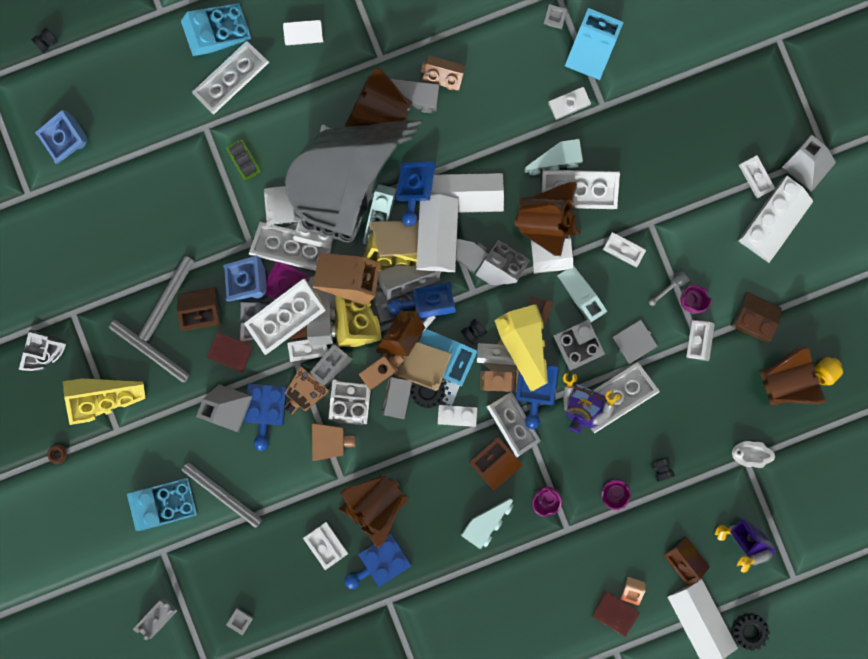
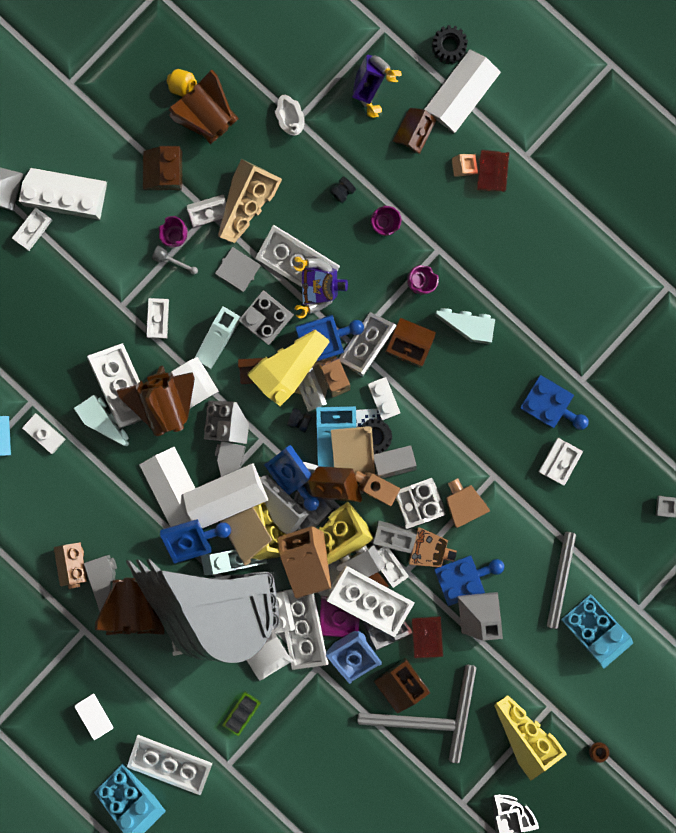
camera: 120 degrees left, 0 degrees up
(374, 506) = (503, 434): reddish brown brick -> none
(699, 383) = (247, 194): none -> tan wedge

